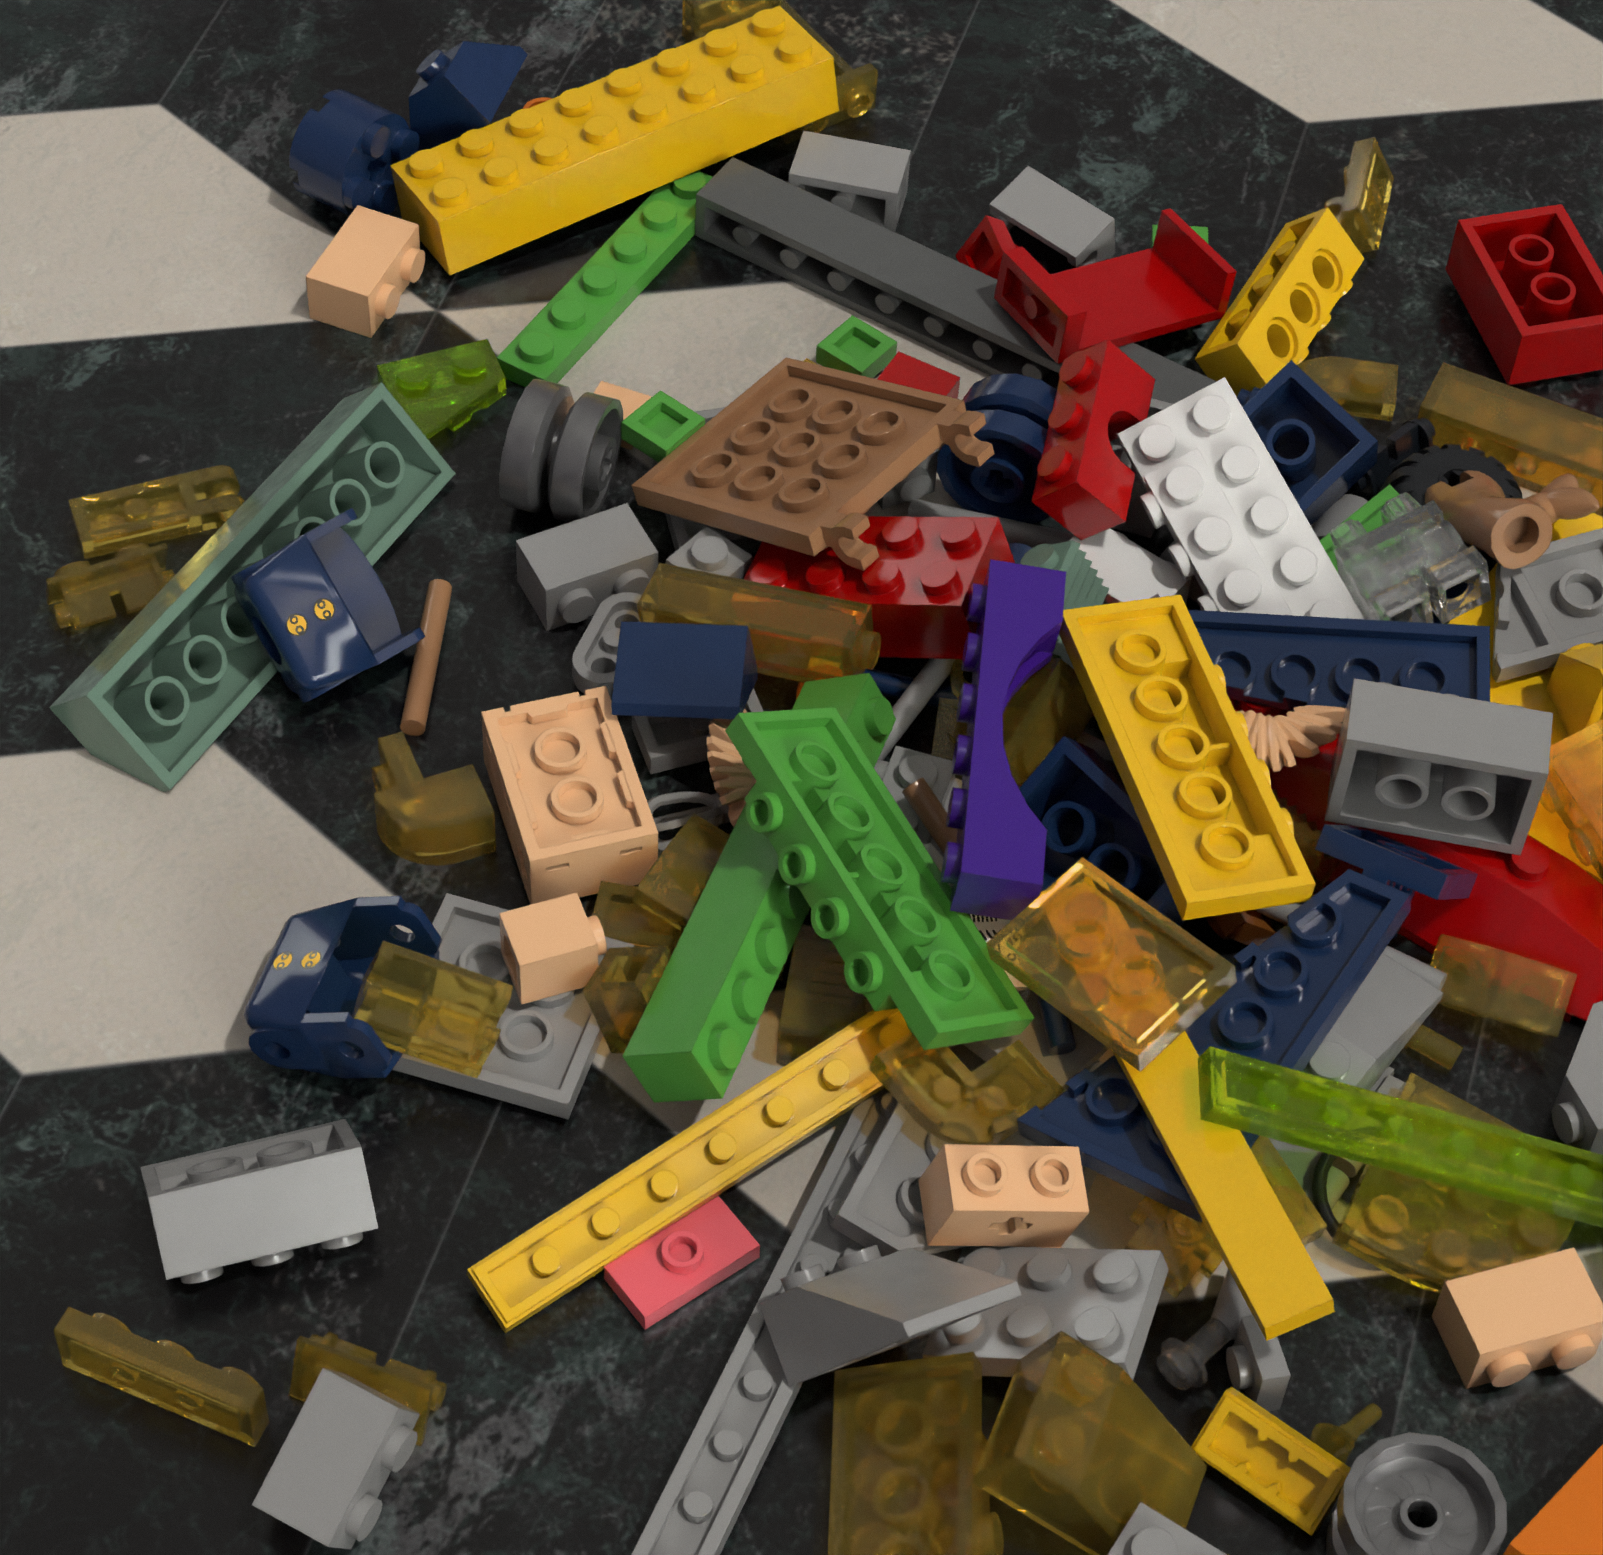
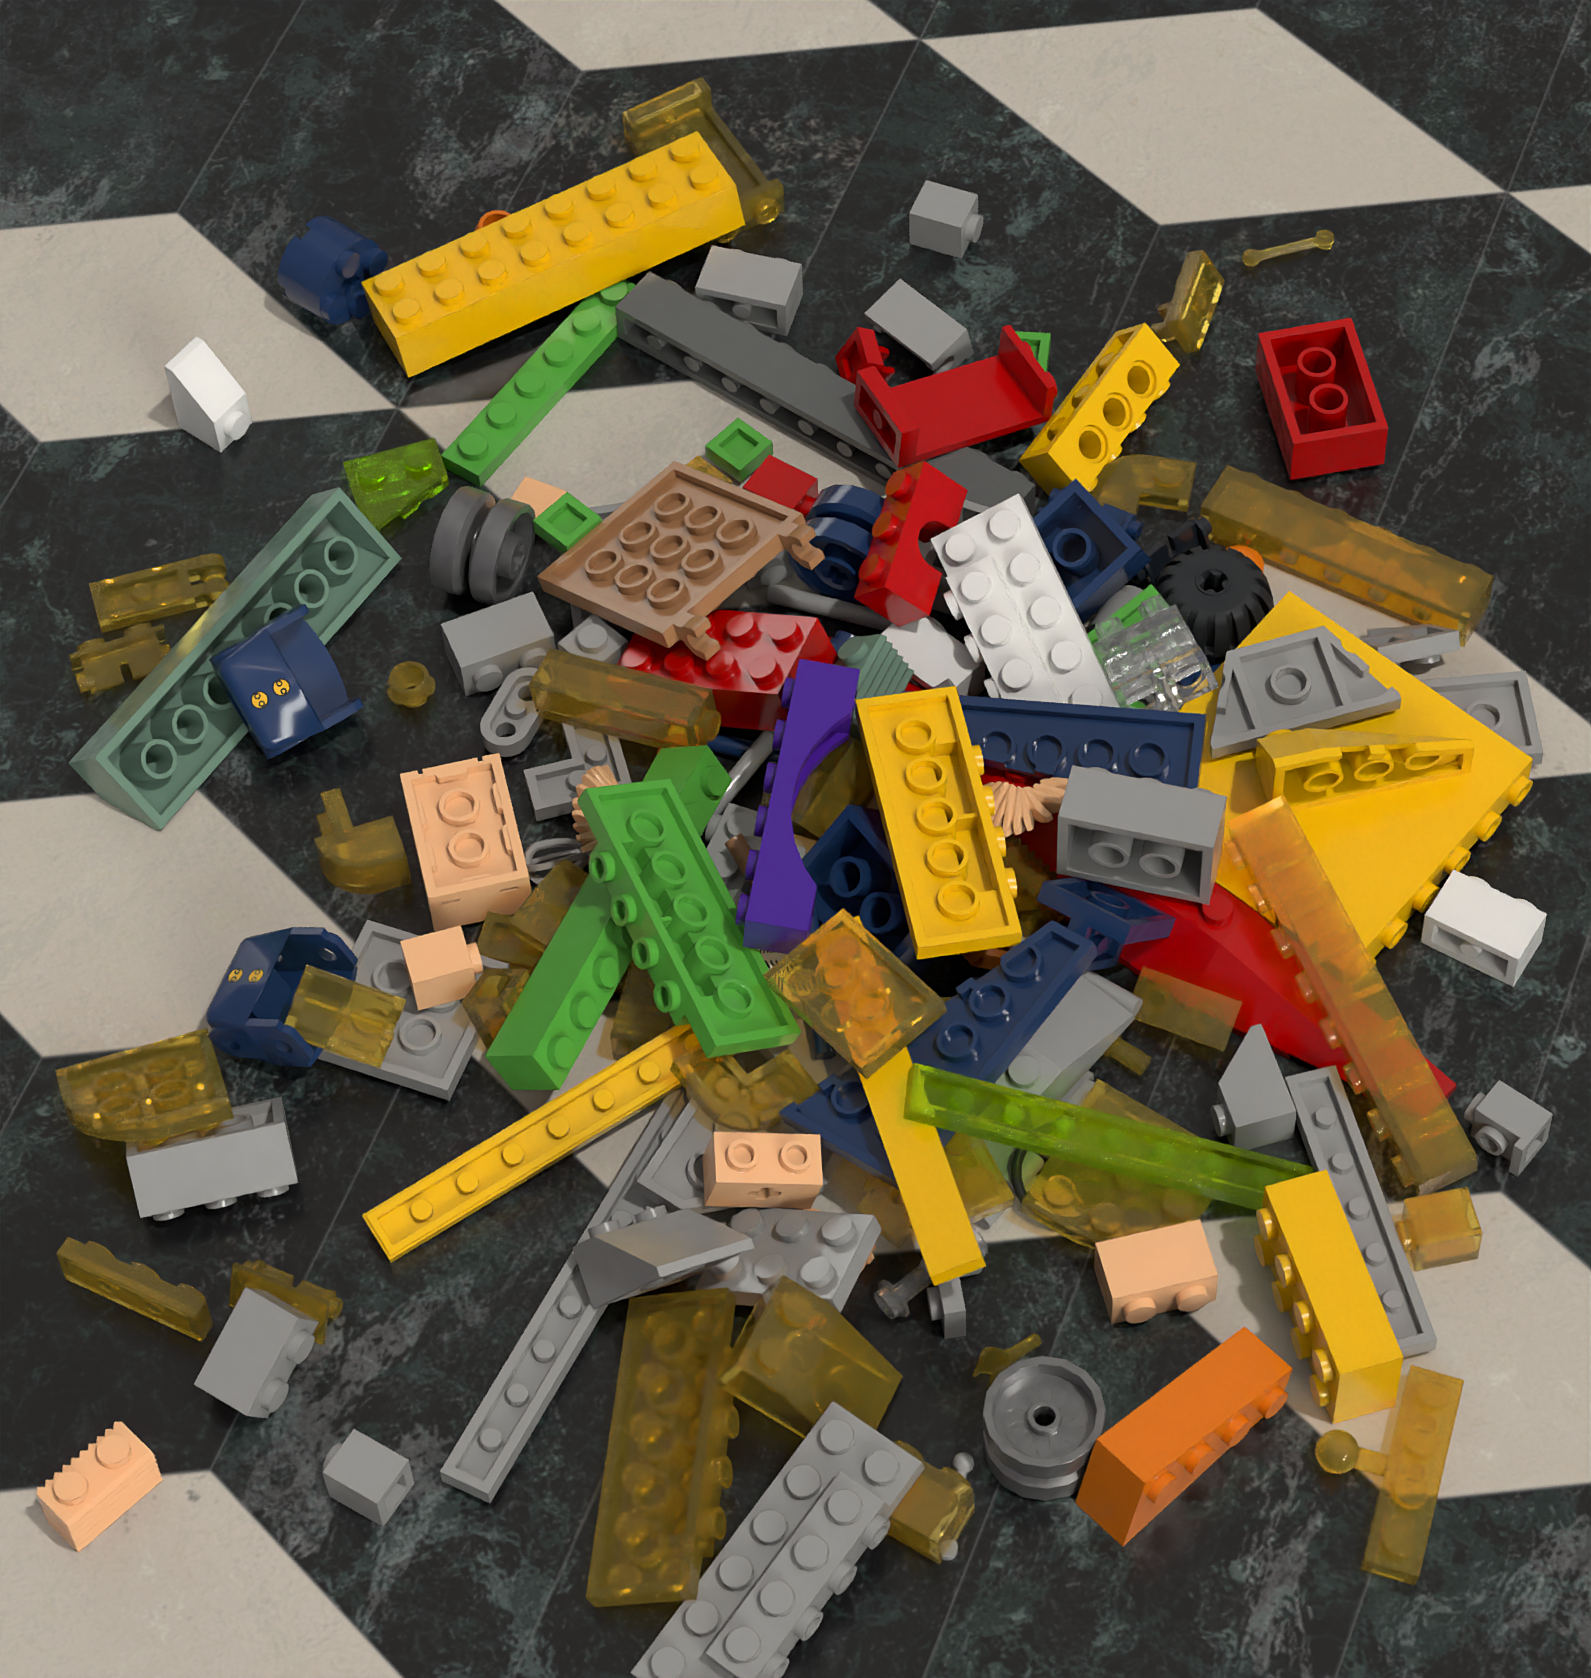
camera: 10 degrees right, 5 degrees up
(171, 1113) = (148, 1091): none -> clear yellow plate
(208, 289) = (207, 396): none -> white slope
(364, 271) = (337, 376): light nougat brick -> none
(426, 658) = (367, 719): medium nougat bar -> none
(461, 89) = (424, 213): dark blue slope -> none
(478, 614) = (407, 675): none -> clear yellow plate
(681, 1262) = (525, 1213): coral plate -> none
(683, 670) = (560, 743): dark blue slope -> none
(1066, 110) = (944, 219): none -> light grey brick
(1271, 1460) = (944, 1372): yellow plate -> none
(1496, 138) = (1323, 240): none -> clear yellow hinge
(1509, 528) = (1230, 629): medium nougat piece -> none

